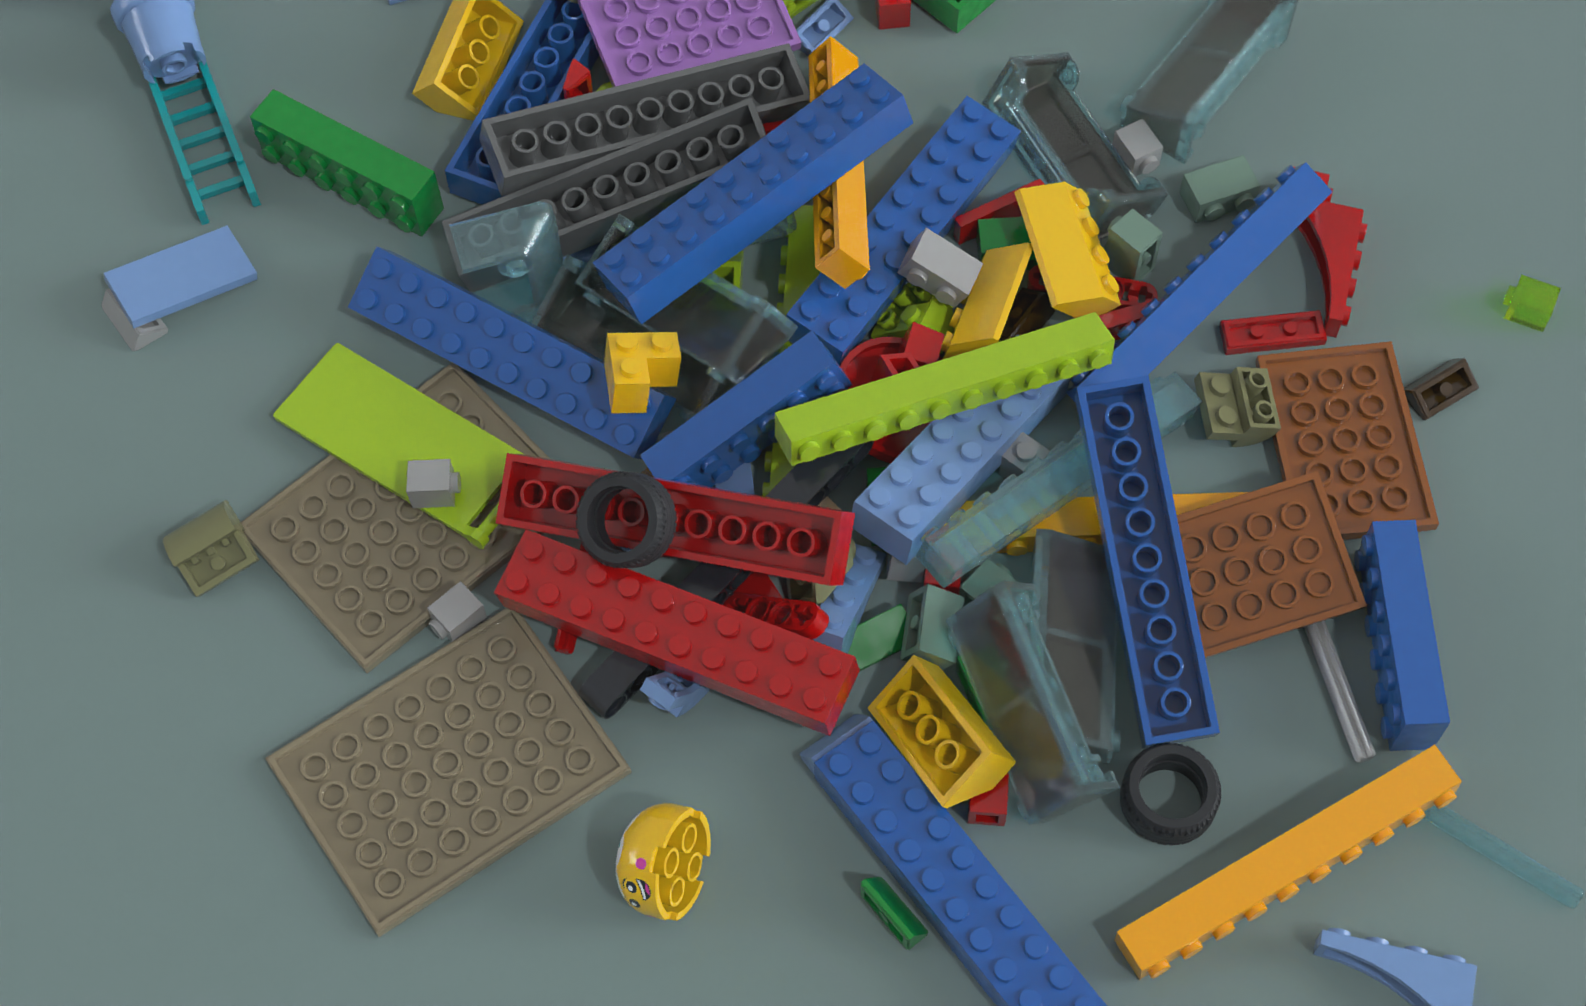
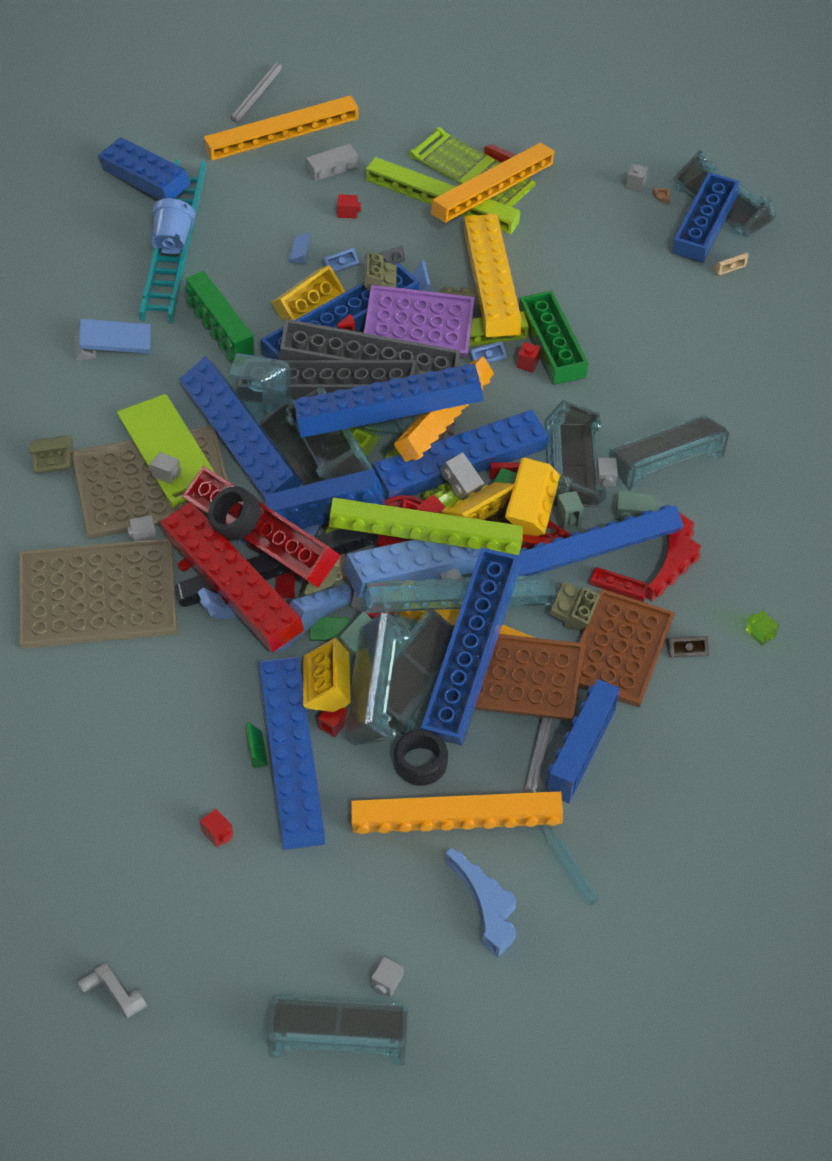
camera: 25 degrees right, 10 degrees down
(639, 362) = (287, 453): yellow brick -> none
(662, 860) = (163, 665): yellow cylinder -> none
(778, 608) = (287, 591): red beam -> none

